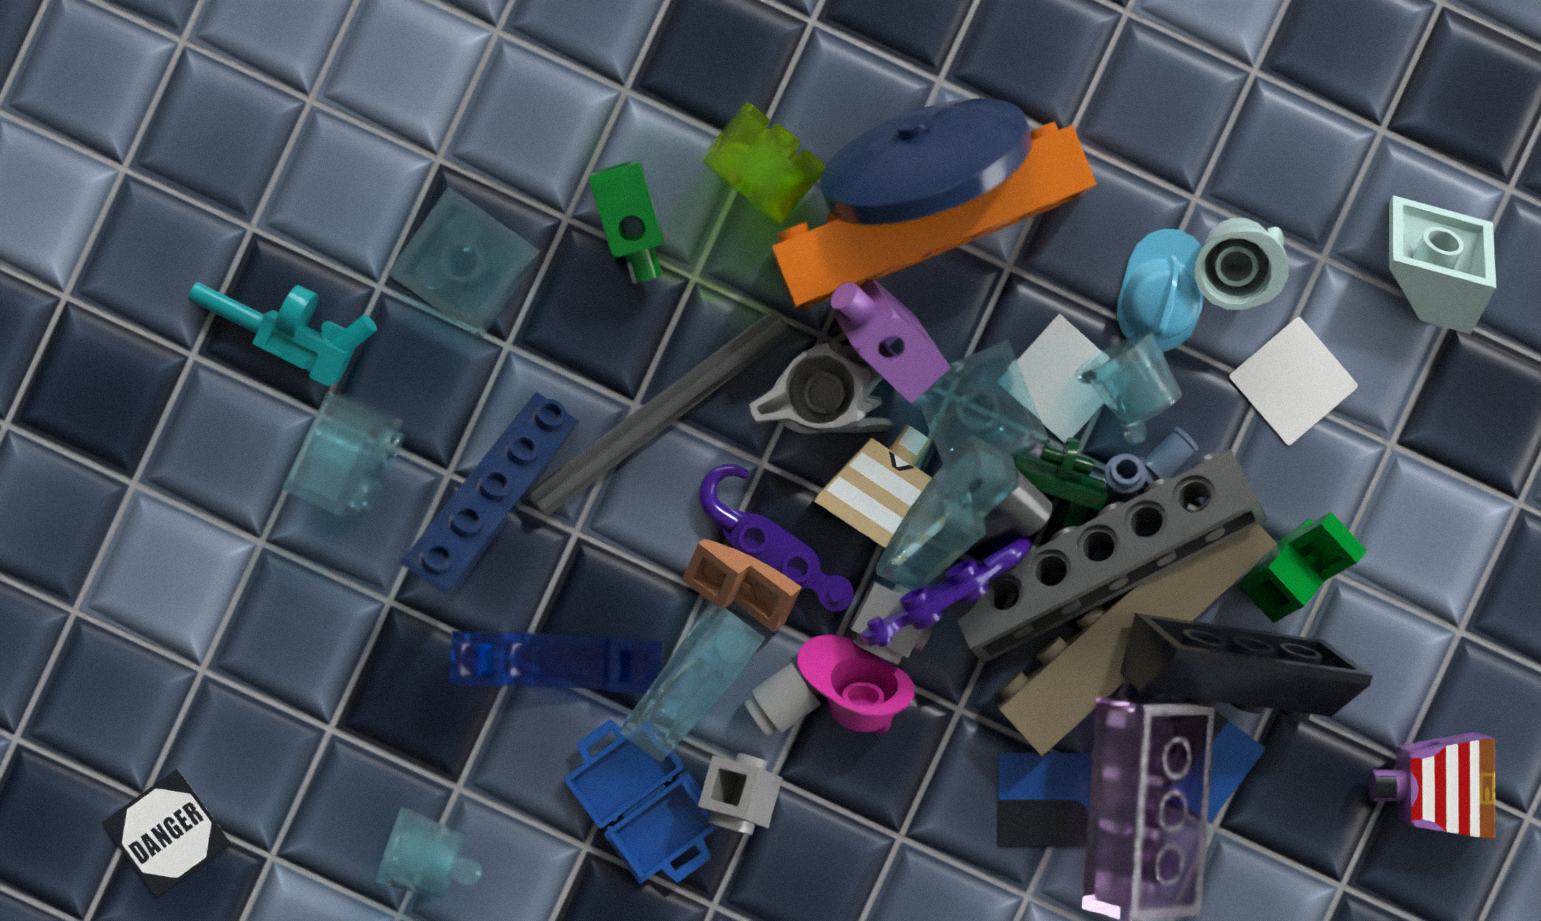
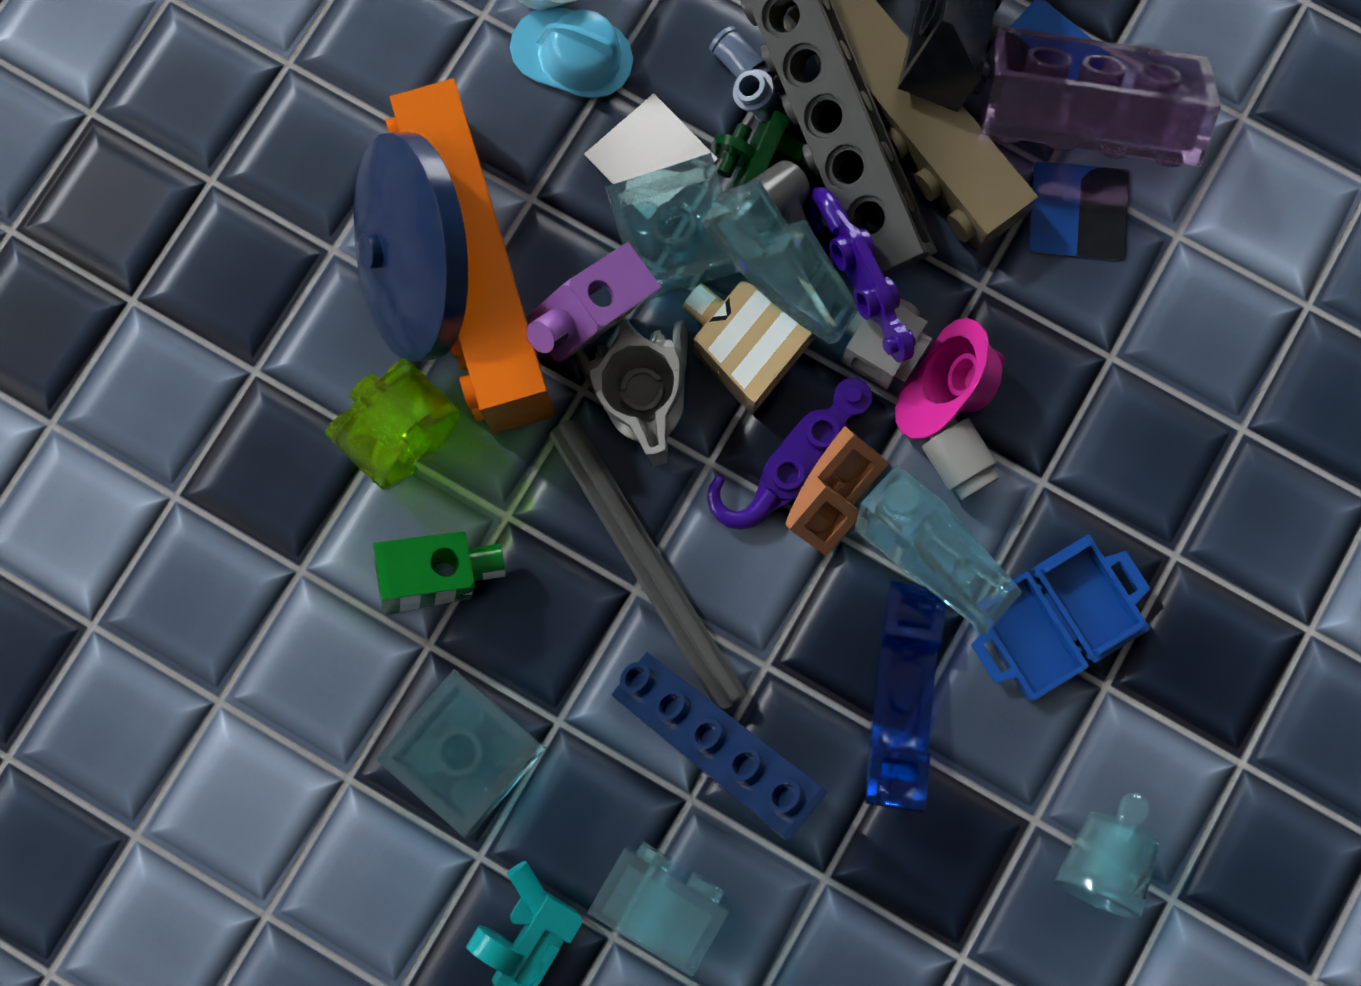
camera: 85 degrees left, 10 degrees down
(739, 793) = (1060, 509): light grey brick -> none
(1132, 382) = (659, 78): clear light blue hat -> none

